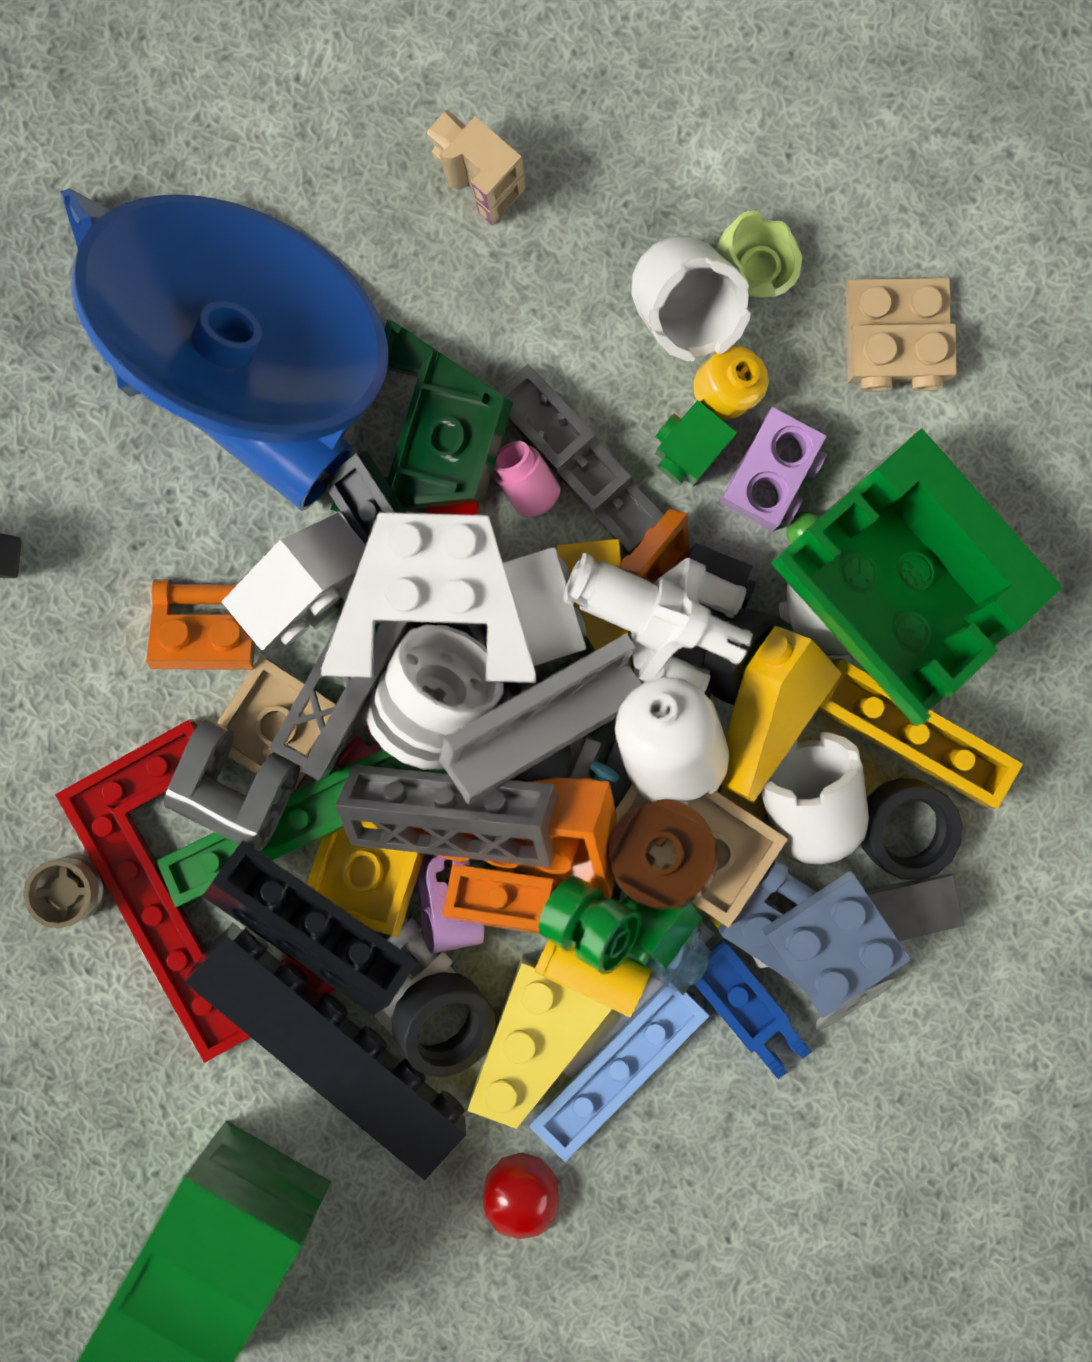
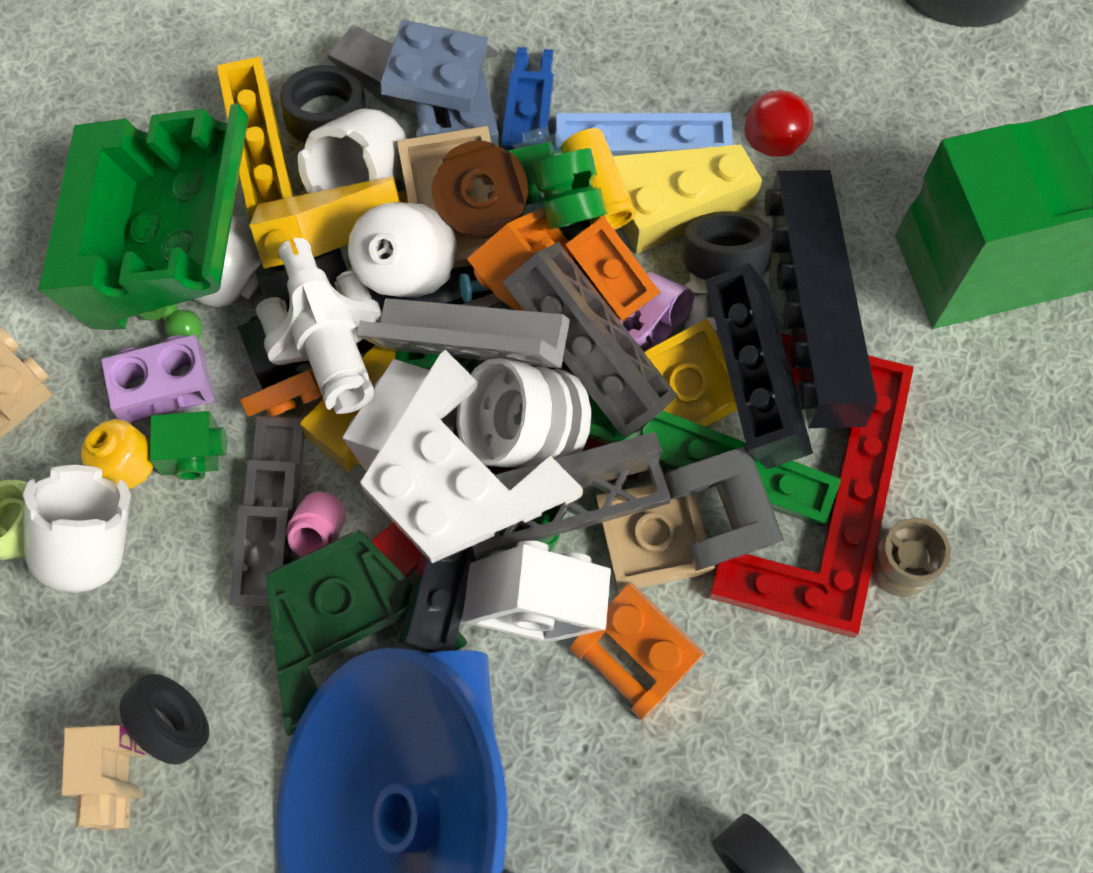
camera: 135 degrees left, 20 degrees down
(482, 219) = (151, 731): none -> black tyre

